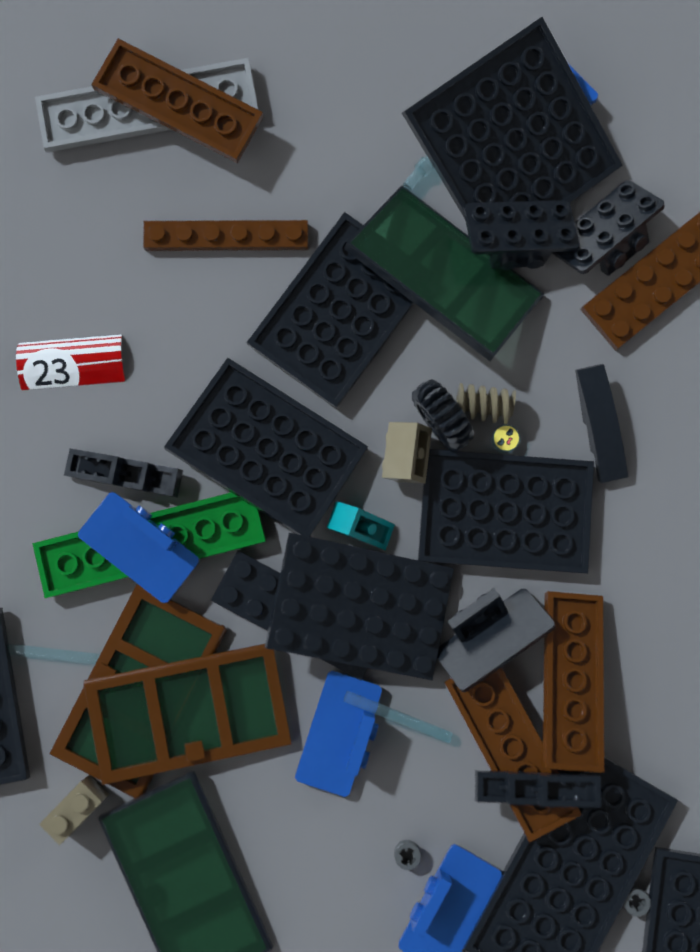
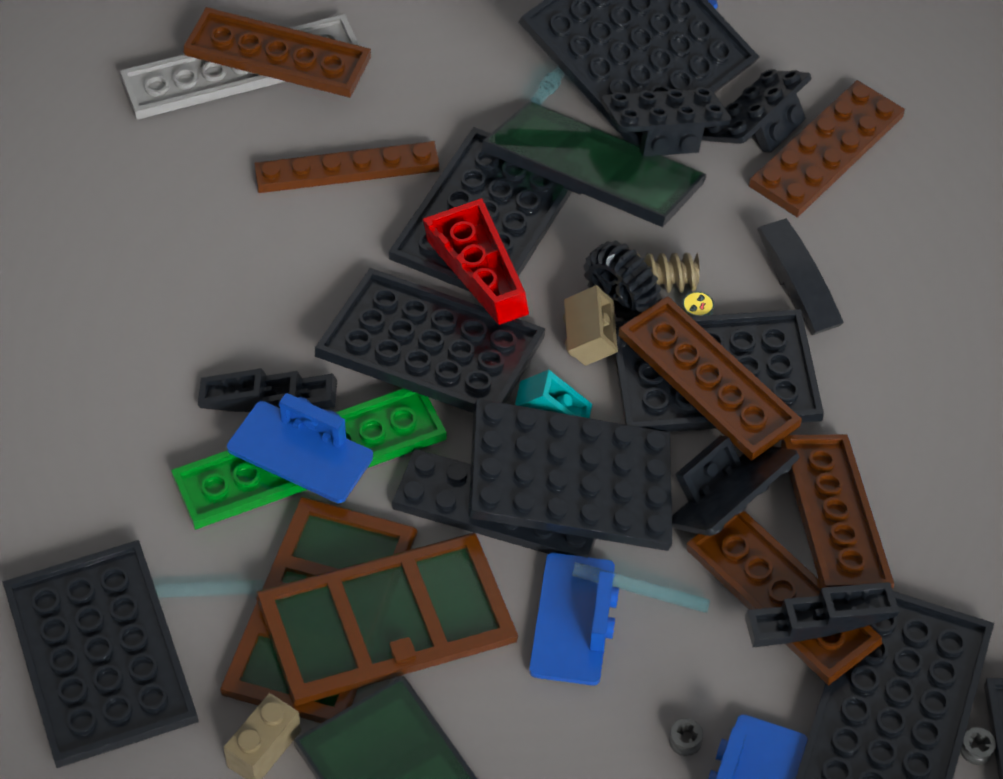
camera: 10 degrees left, 30 degrees down
(69, 362) = (189, 302): sticker -> none
(320, 372) = (477, 255): none -> red wedge
(497, 528) = (710, 378): none -> reddish brown plate

